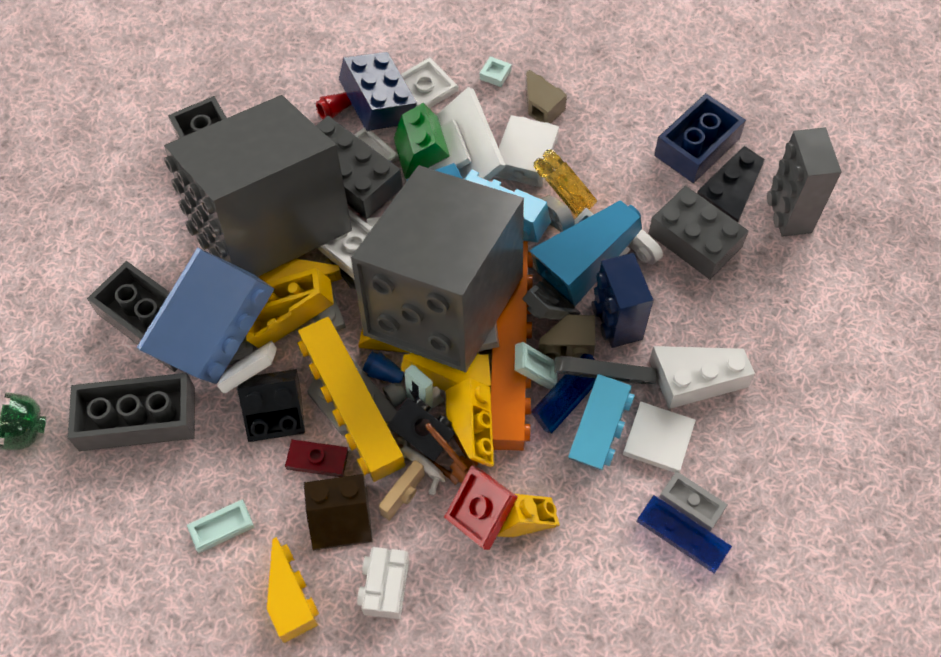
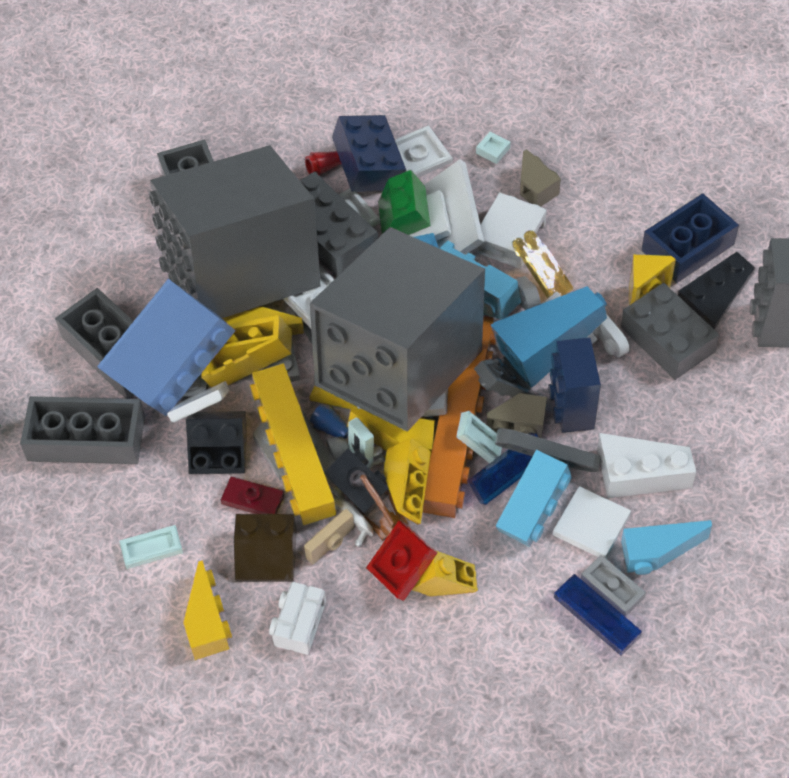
camera: 10 degrees right, 5 degrees down
(668, 180) = (649, 273): none -> yellow slope
(725, 454) = (655, 546): none -> medium azure slope

